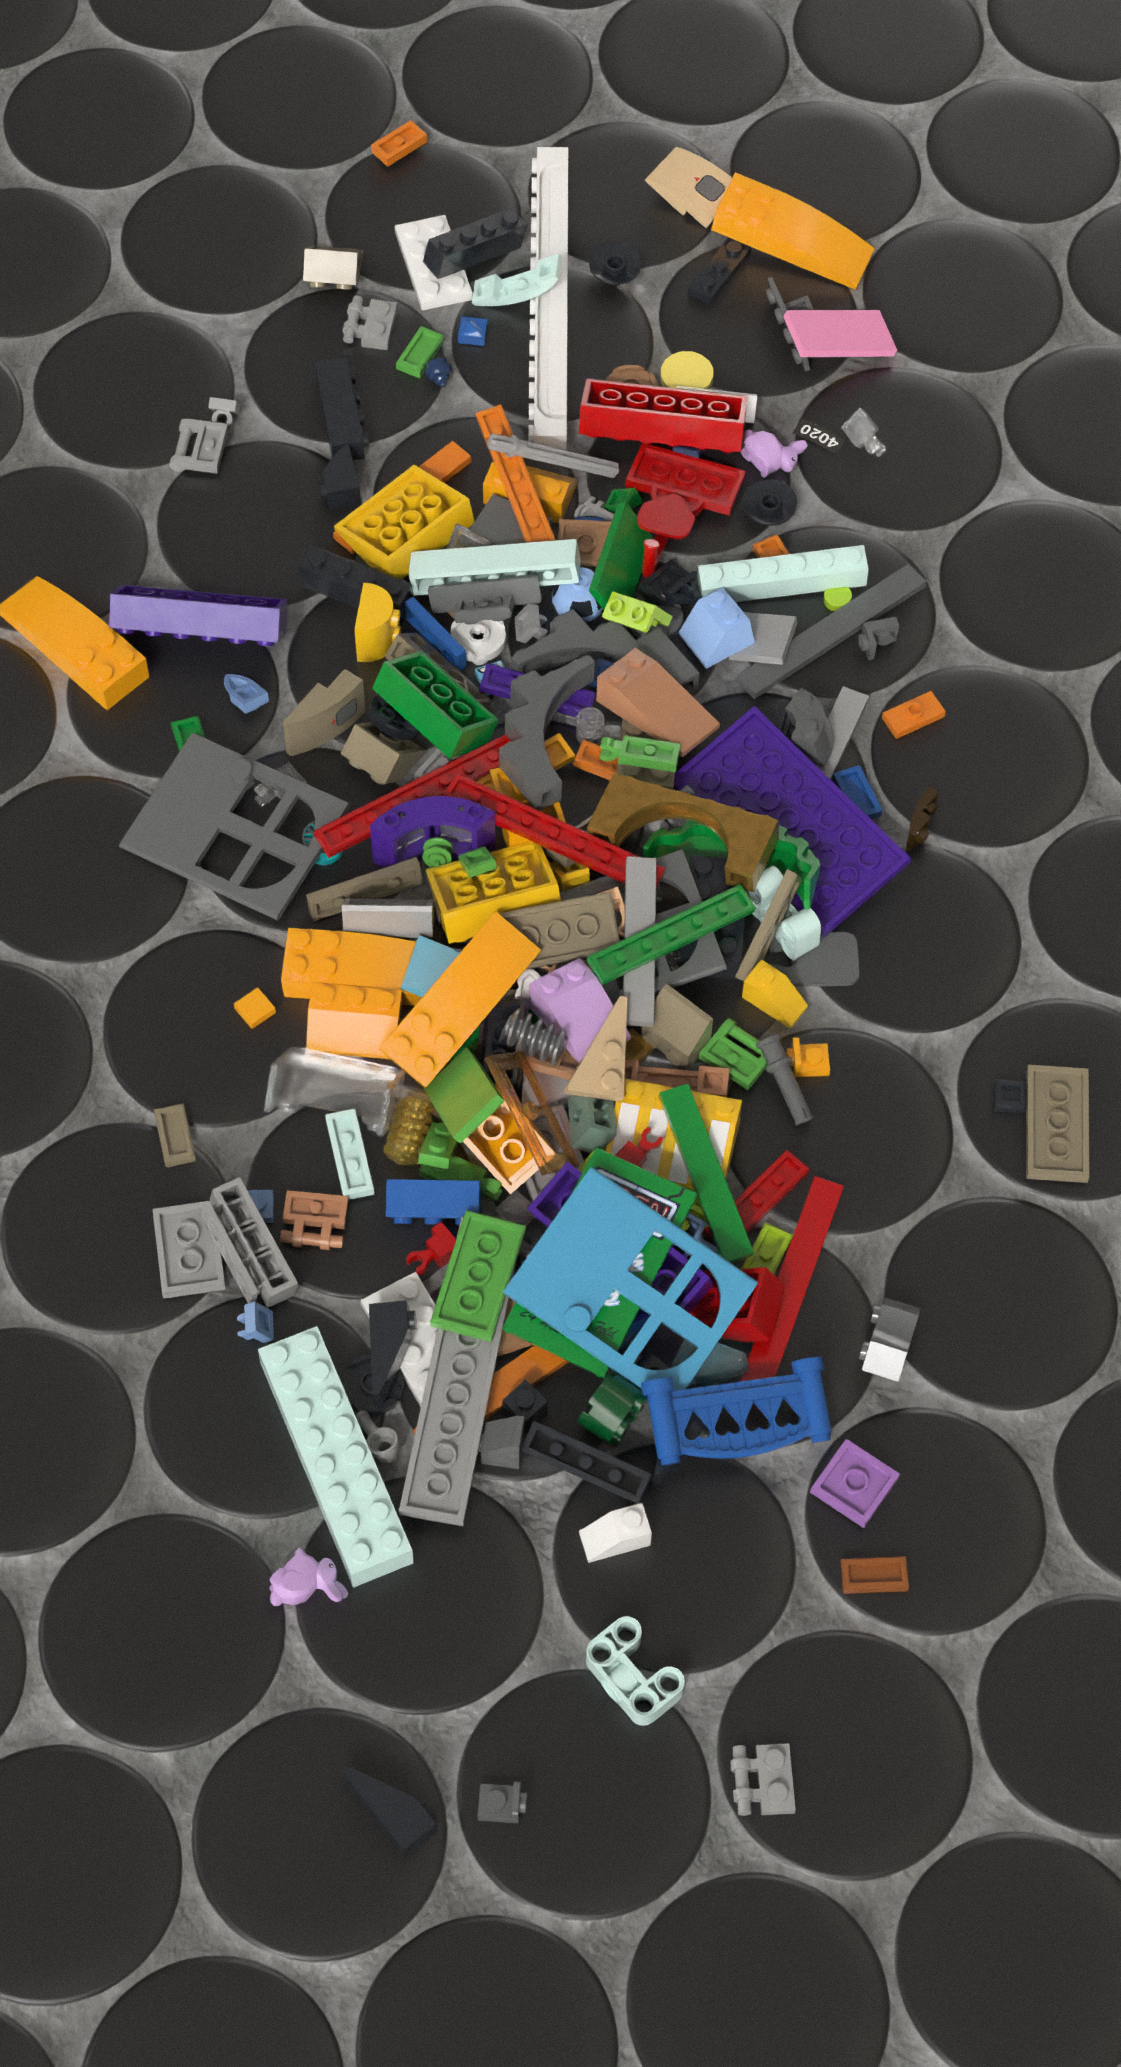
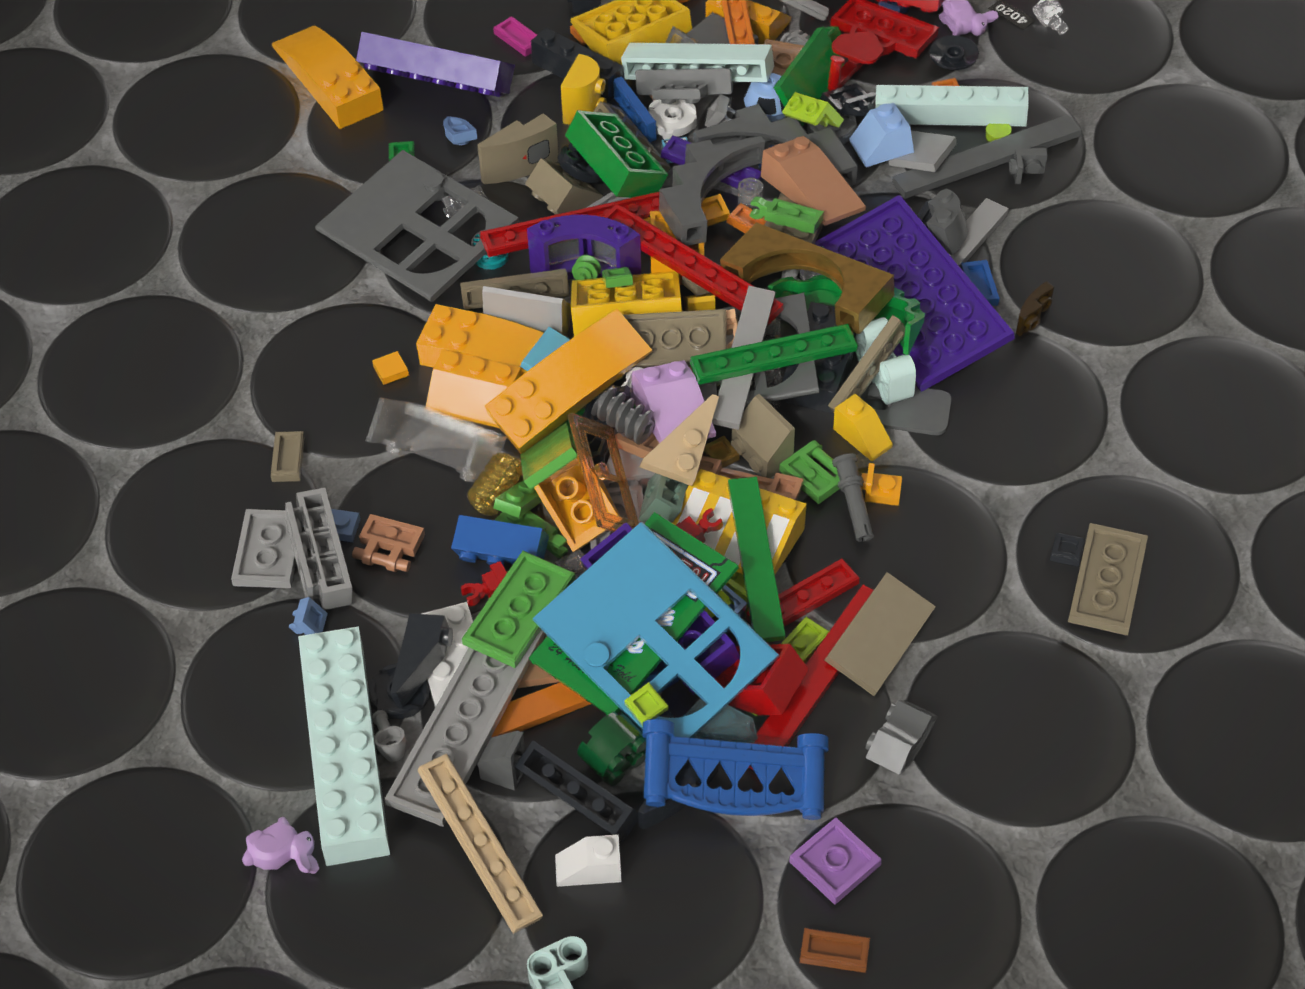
camera: 15 degrees right, 10 degrees down
(275, 553) = (515, 35): none -> dark pink tile
(349, 1154) = (436, 495): light aqua plate -> none
(505, 1537) = (480, 843): none -> tan tile
(525, 1402) = (535, 728): black brick -> none
(638, 1361) = (646, 704): none -> lime tile
(844, 1228) = (880, 633): none -> dark tan tile
(913, 714) = (1046, 229): orange plate -> none

